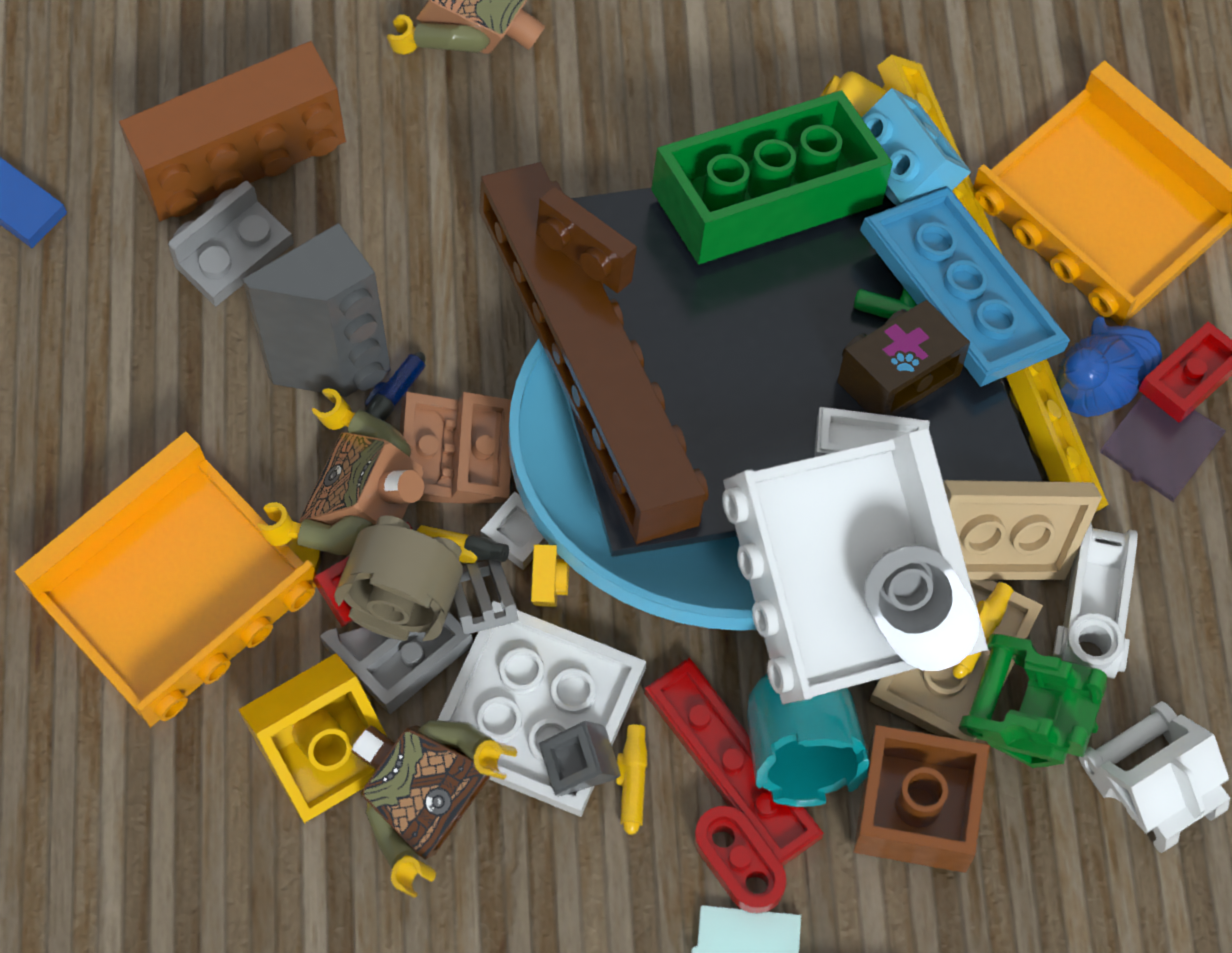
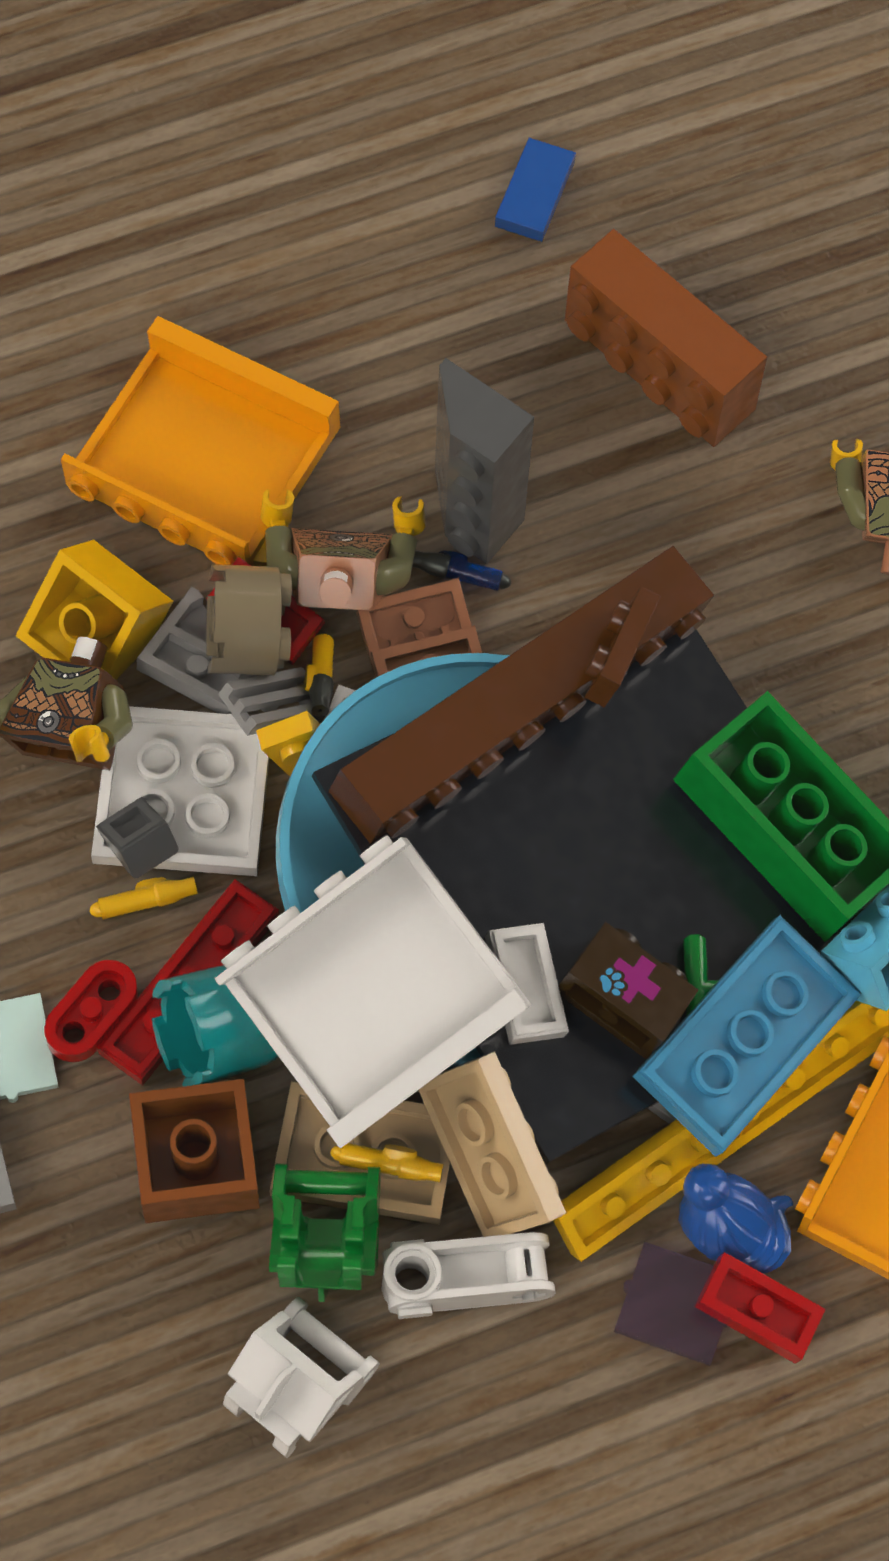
camera: 70 degrees right, 0 degrees up
(228, 243) = (558, 380): light grey bracket -> none
(922, 607) = (351, 1062): light grey piece -> none

